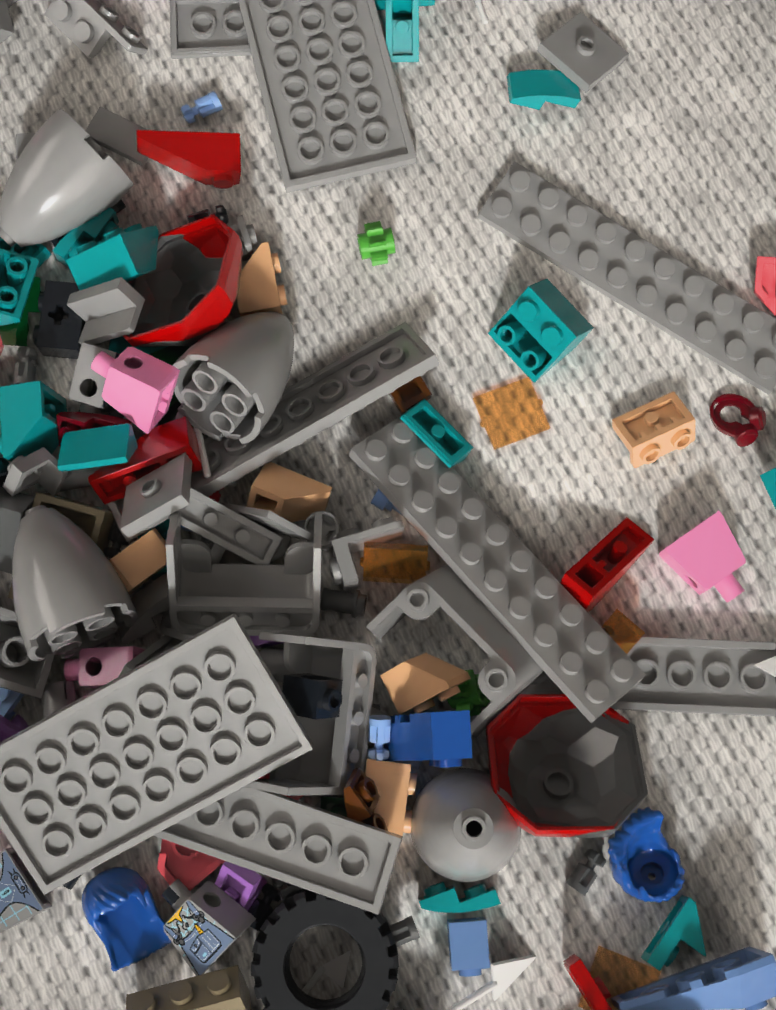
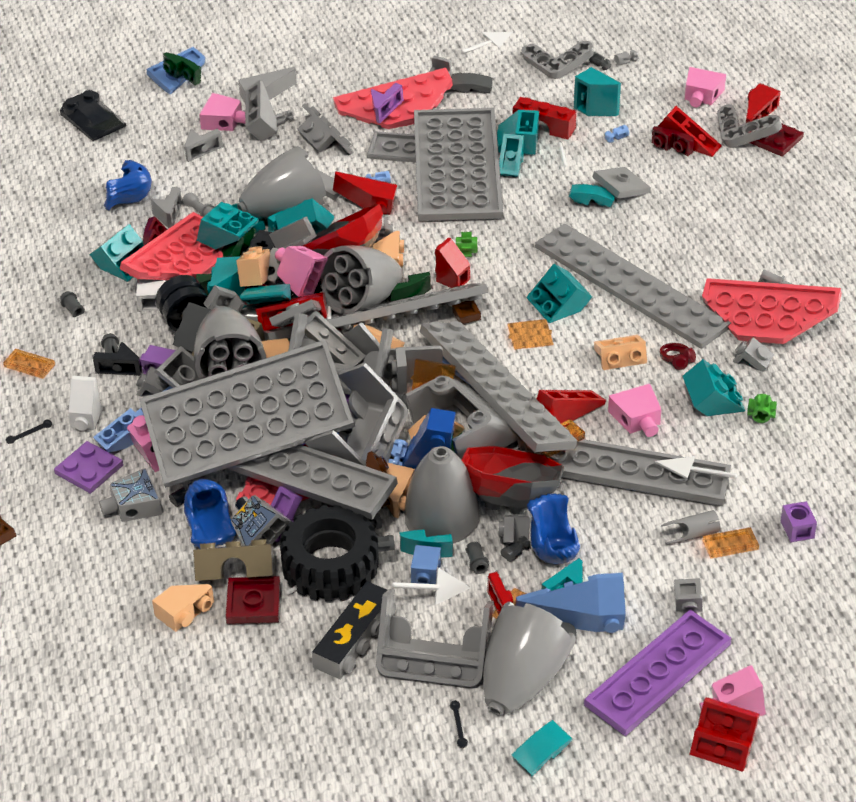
camera: 15 degrees right, 35 degrees down
(62, 395) = (253, 266): none -> light nougat slope
(313, 695) = (365, 415): black brick -> none
(319, 349) = (416, 285): none -> dark green slope
(366, 303) = (451, 265): none -> red slope
(437, 433) = (480, 329): teal slope -> none
(536, 905) = (478, 561): none -> dark grey pin
(573, 855) = (514, 527): none -> light grey bracket

